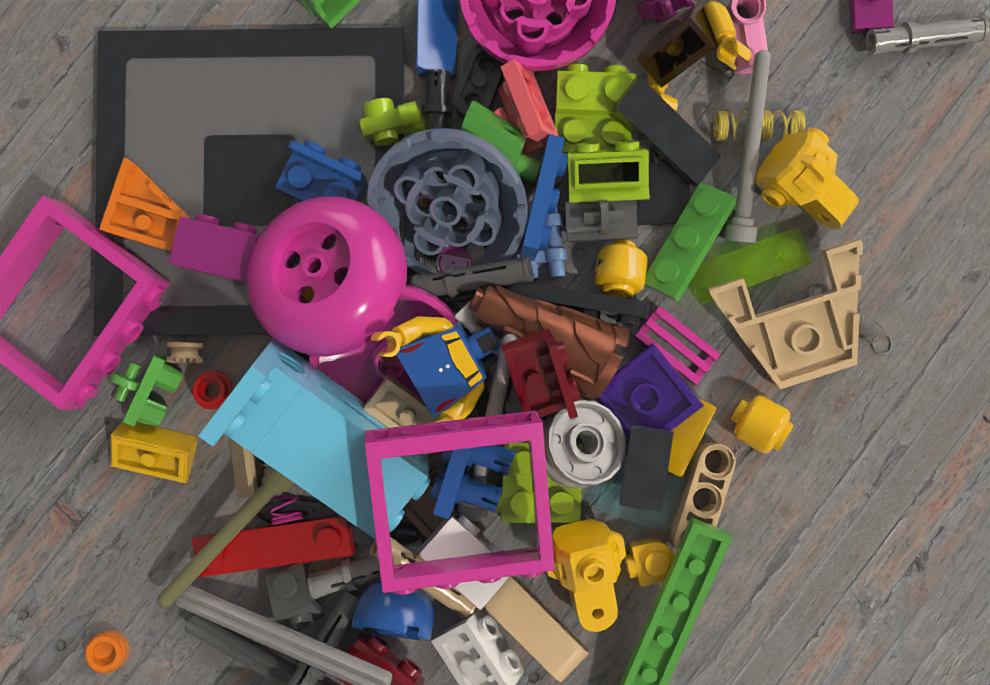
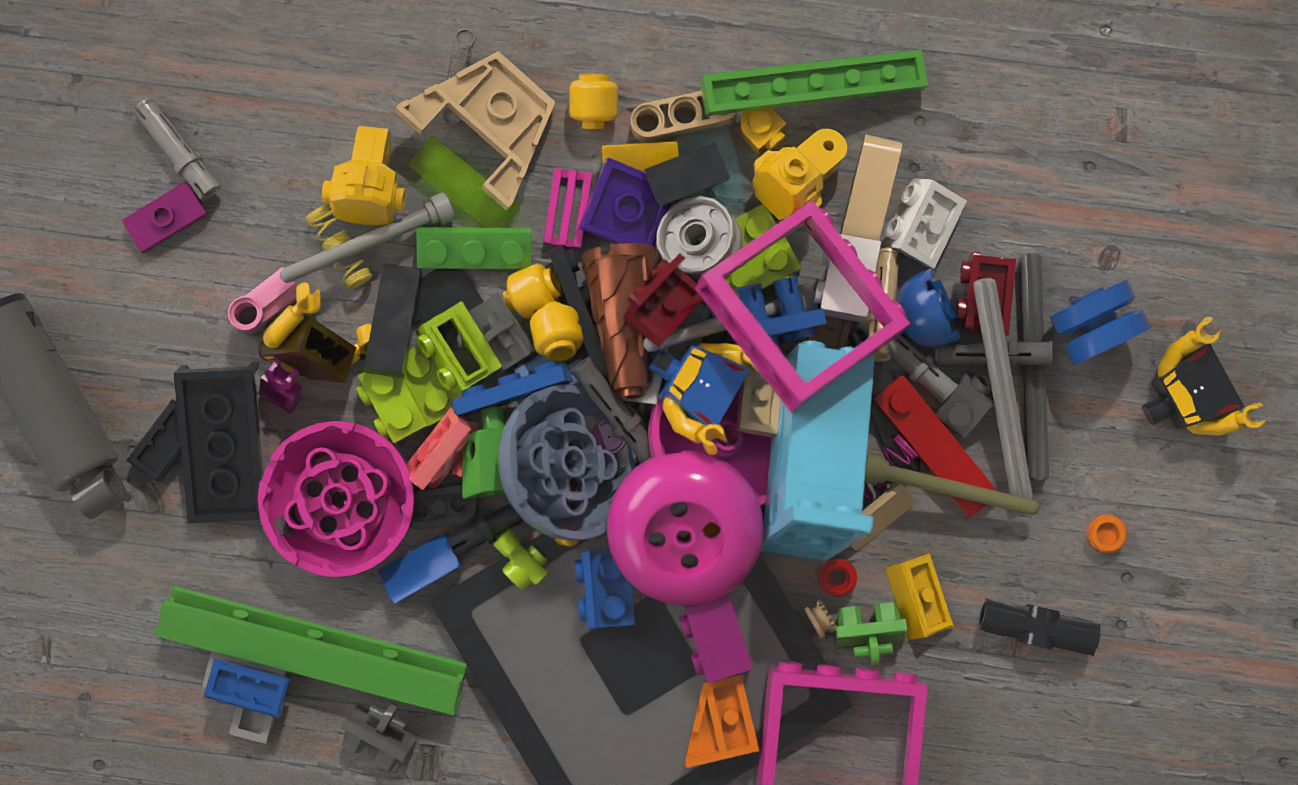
camera: 120 degrees left, 0 degrees up
(59, 542) = (1039, 626): none -> black piece
(572, 267) = (556, 331): none -> yellow head

